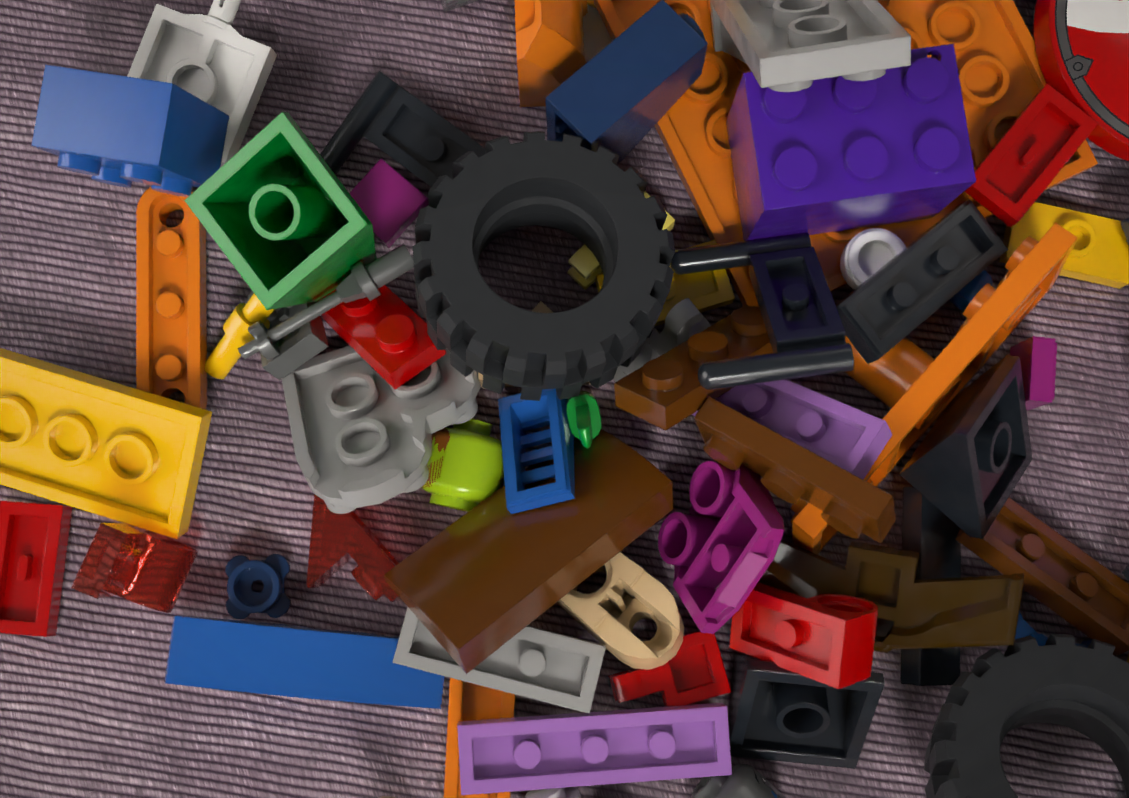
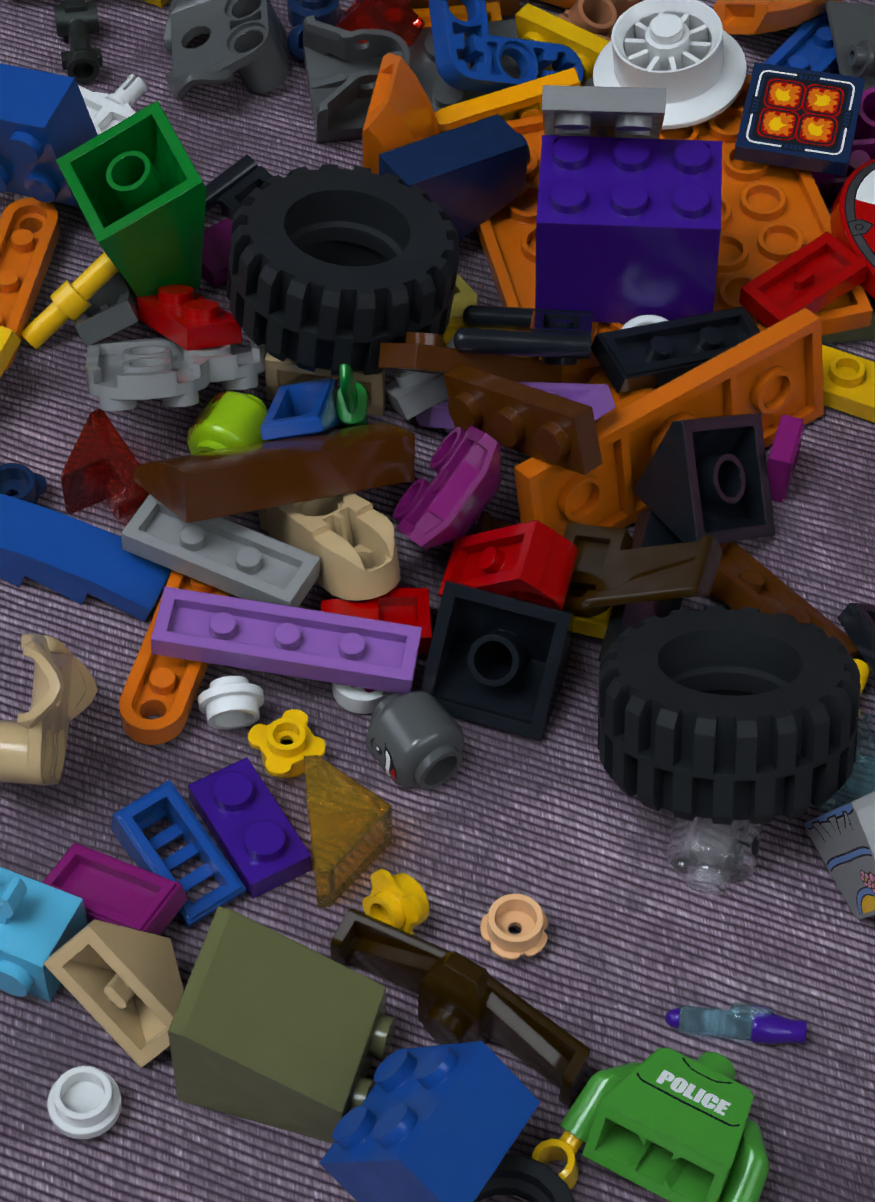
camera: 15 degrees right, 30 degrees down
(361, 283) = (184, 273): dark grey piece -> none

